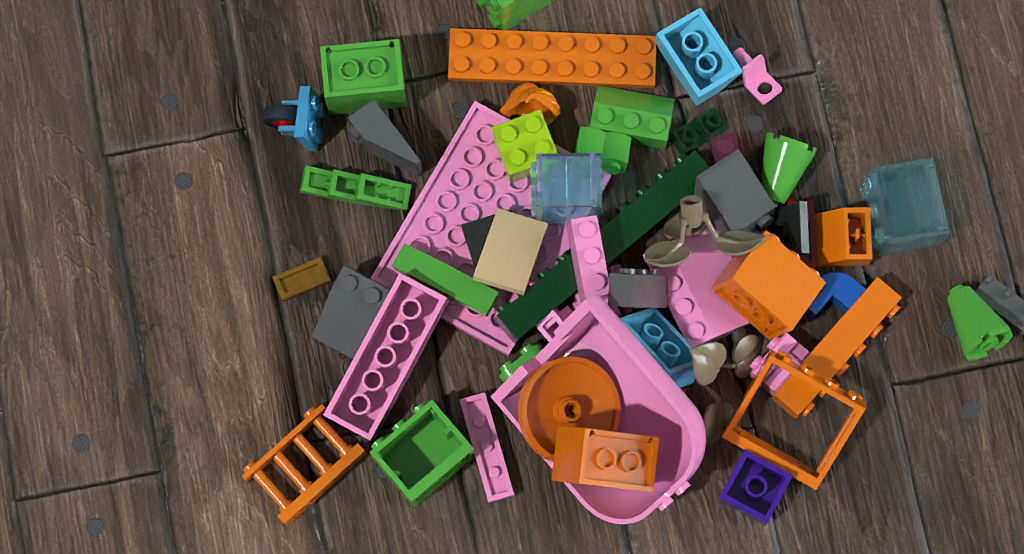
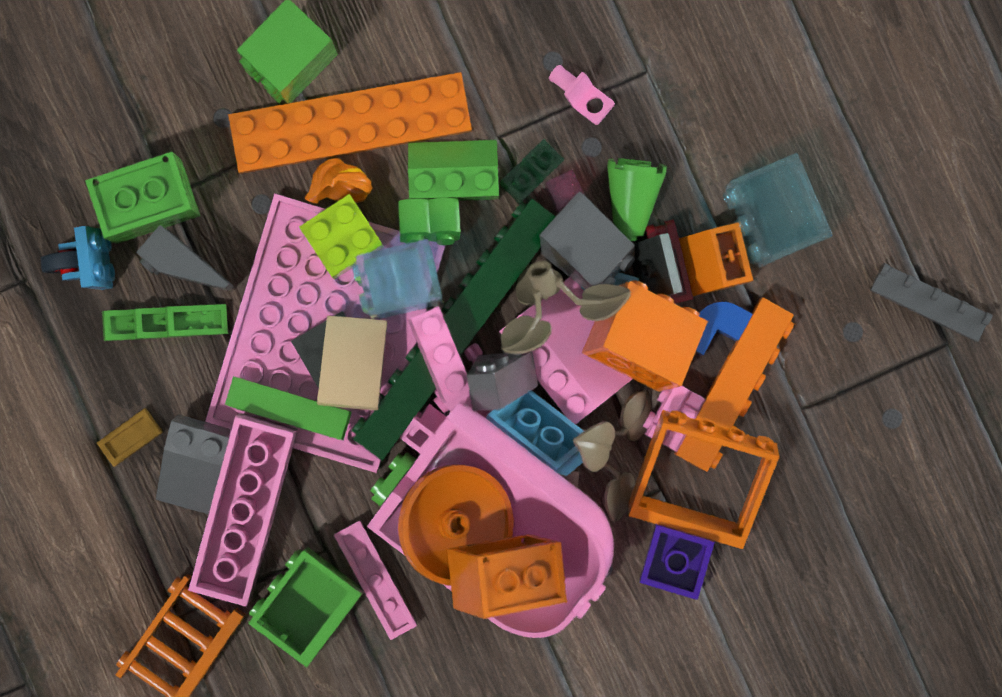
camera: 15 degrees left, 10 degrees up
(698, 56) = (512, 87): medium azure slope -> none
(976, 323) = (880, 323): bright green cone -> none

